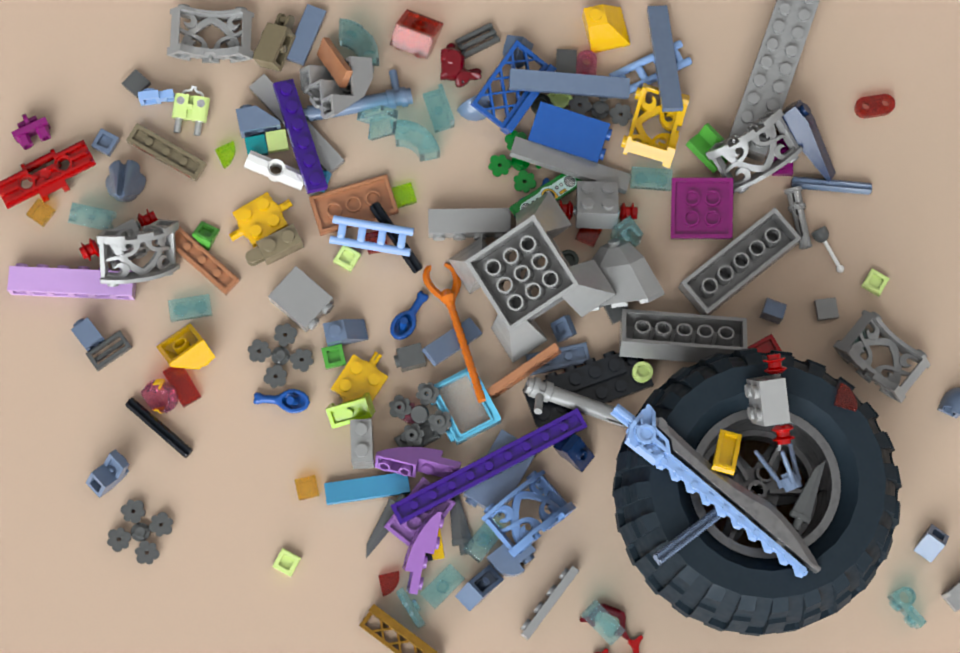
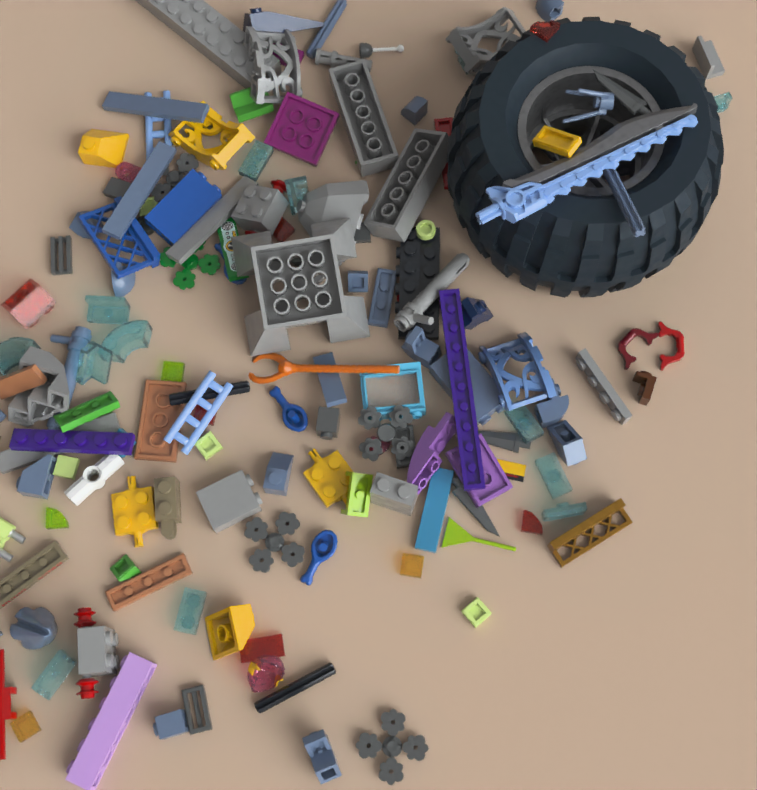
camera: 60 degrees left, 5 degrees down
(161, 230) = (136, 623): light grey fence -> none
(257, 144) = (58, 486): teal tile -> none
(333, 136) = (86, 412): none -> bright green plate
(333, 356) = (297, 492): bright green plate -> none
(351, 517) = (456, 535): none -> lime piece
(423, 542) = (508, 475): medium lavender slope -> none
(454, 67) = (76, 284): dark red animal -> none
(468, 223) = (225, 324): light grey brick -> none
(517, 415) = (421, 348): none -> sand blue brick
(524, 371) = (389, 353): nougat tile -> none
(563, 645) = (646, 387): none -> reddish brown bracket
(603, 622) = (638, 347): clear light blue plate -> none
(769, 400) = (526, 82): light grey brick -> none
(826, 309) = (430, 71): light grey tile -> none
(875, 282) = (423, 27): yellowish green tile -> none

